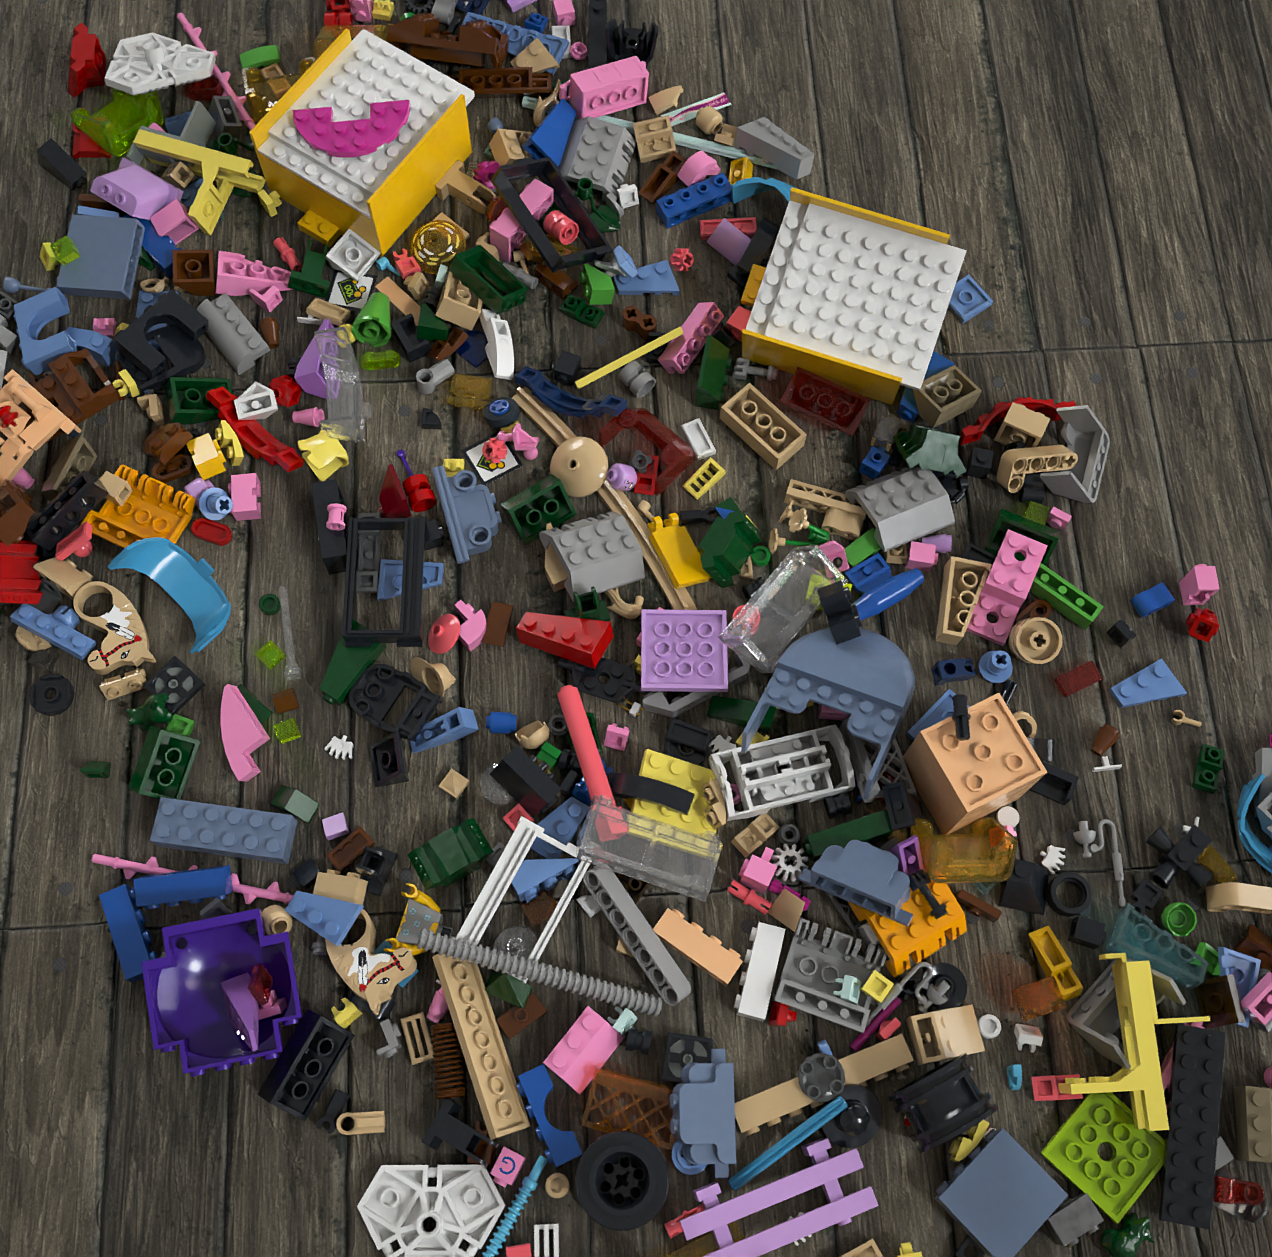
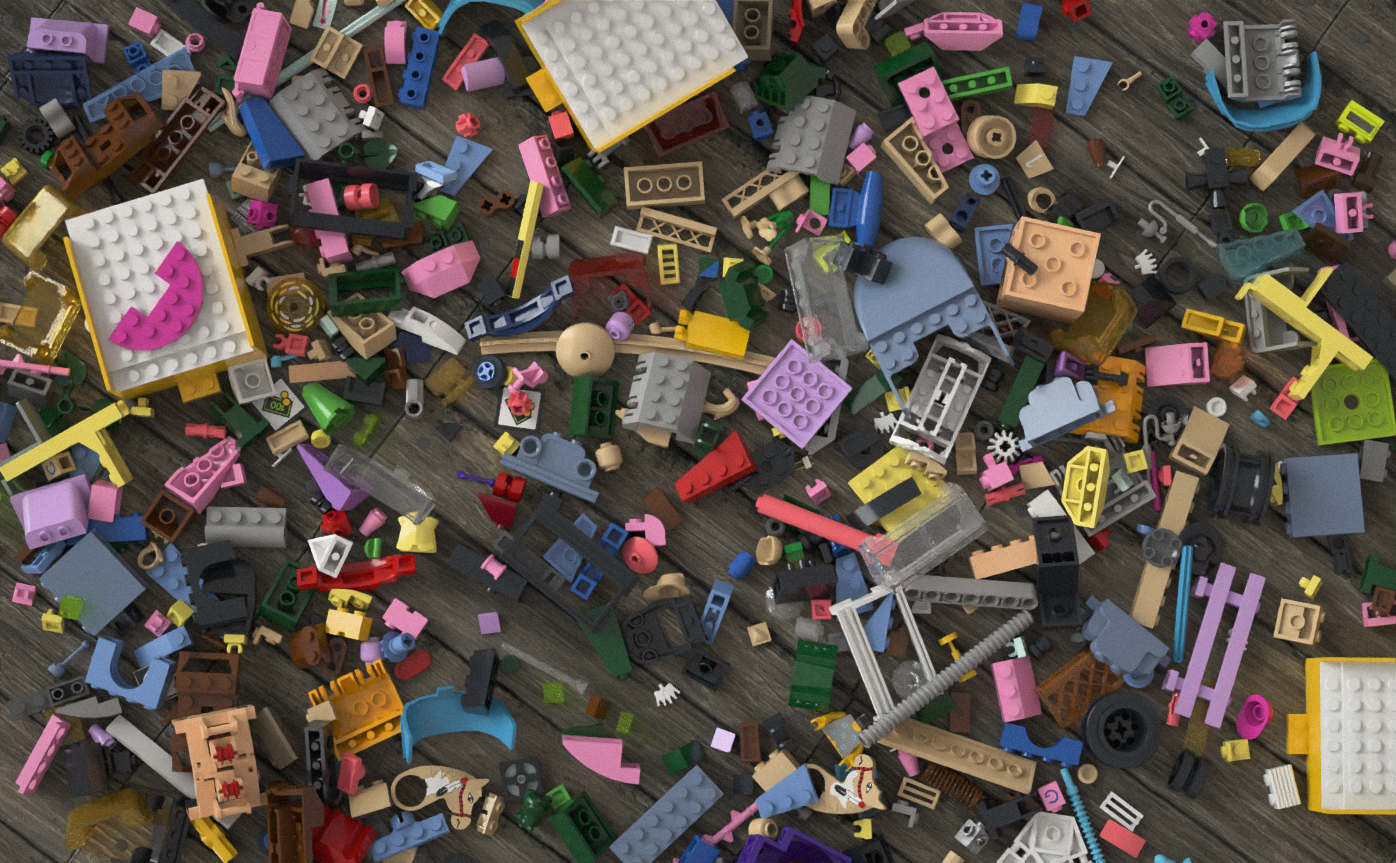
camera: 45 degrees left, 15 degrees up
(58, 224) = (24, 594): none -> bright pink tile
(90, 303) = (127, 619): none -> black bracket
(233, 589) = (480, 682): none -> black slope
(286, 432) = (373, 548): none -> bright green plate
(293, 562) = (489, 622): none -> lavender slope
(412, 1120) = (973, 836): none -> flat silver brick
(435, 603) = (590, 575): none -> blue arch
(437, 205) = (257, 277): none -> white tile
(491, 820) = (808, 628): none -> clear brick
(507, 550) = (609, 457): none -> tan head
(556, 323) = (443, 270): none -> bright pink wedge
(579, 950) = (956, 654): none -> yellow wheel
(639, 174) = (358, 89): none -> coral plate
(717, 997) = (1057, 572): none -> black bracket
(743, 460) = (675, 221): none -> tan fence
(818, 957) = (1086, 486): none -> light yellow wedge
(922, 664) = (942, 231): none -> tan axle
(994, 957) = (1177, 365): none -> bright pink slope
(1047, 695) = (1034, 160): none -> tan sticker
(1092, 553) = (962, 30): none -> bright pink wedge
(1102, 653) = (1036, 95): none -> light yellow slope

